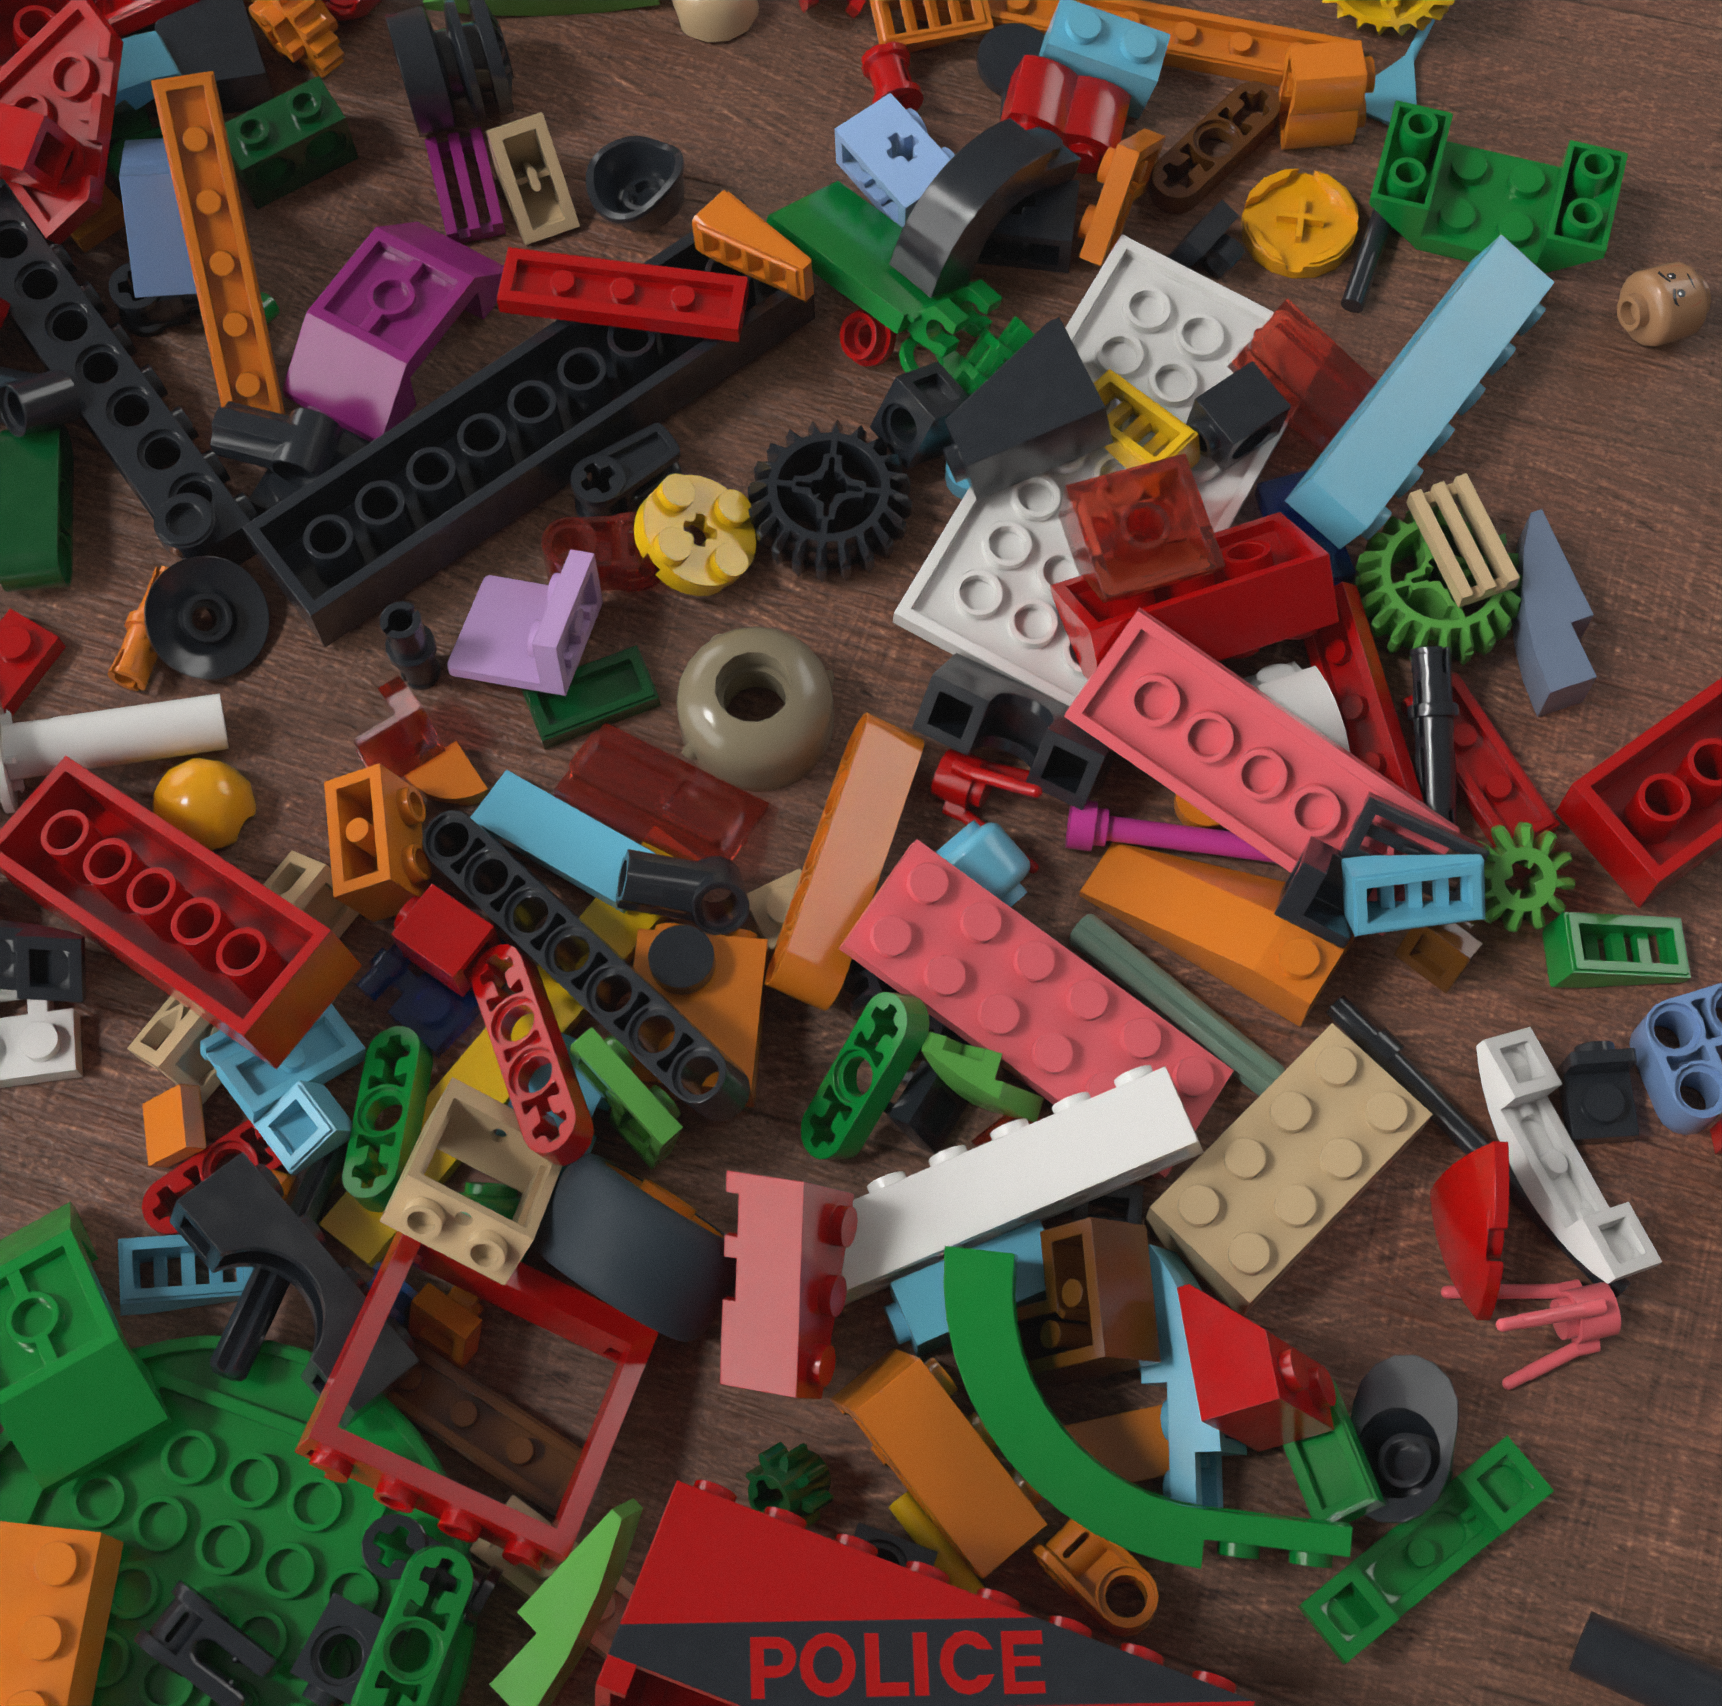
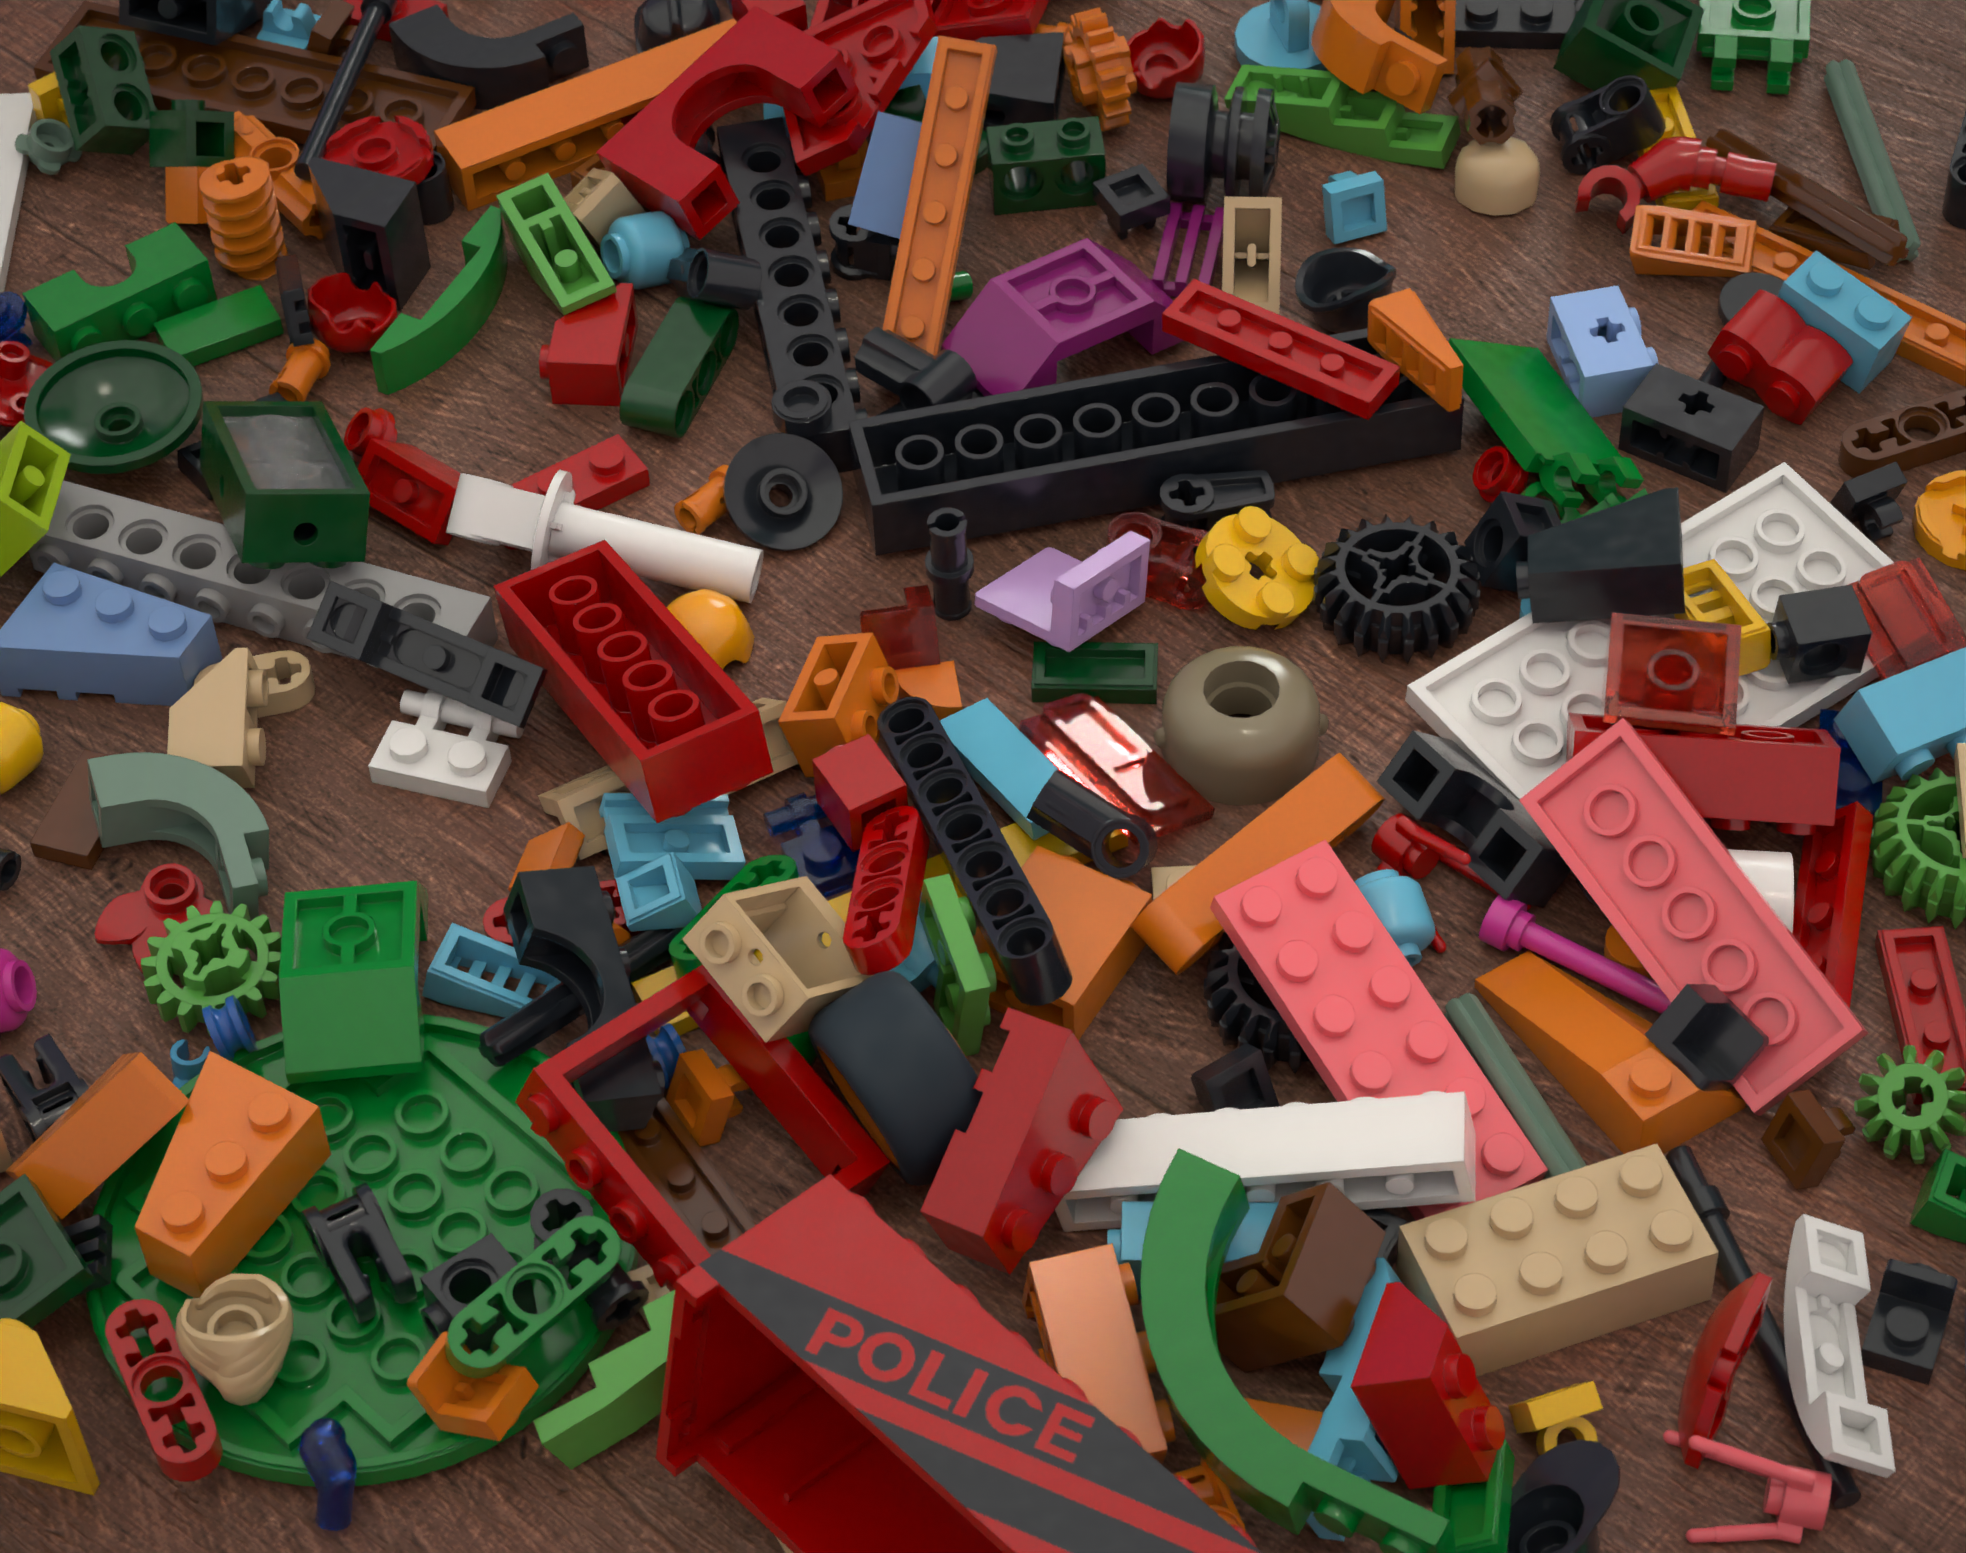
camera: 25 degrees right, 20 degrees down
(387, 152) = (1131, 199): none -> black tile
(599, 82) = (1354, 206): none -> medium azure tile
(681, 959) = (1063, 877): black tile -> none
(888, 1064) = (1185, 1030): green beam -> none
(889, 72) = (1634, 274): red bush -> none
(971, 198) = (1645, 371): black arch -> none
(972, 1076) = (1284, 1059): bright green slope -> none
(1125, 178) = (1807, 413): orange plate -> none
(1351, 1319) = (1558, 1411): none -> yellow tile
(1390, 870) = (1734, 1044): medium azure slope -> none
(1408, 819) = (1853, 1067): black tile -> none
(1434, 728) = (1893, 946): black pin -> none

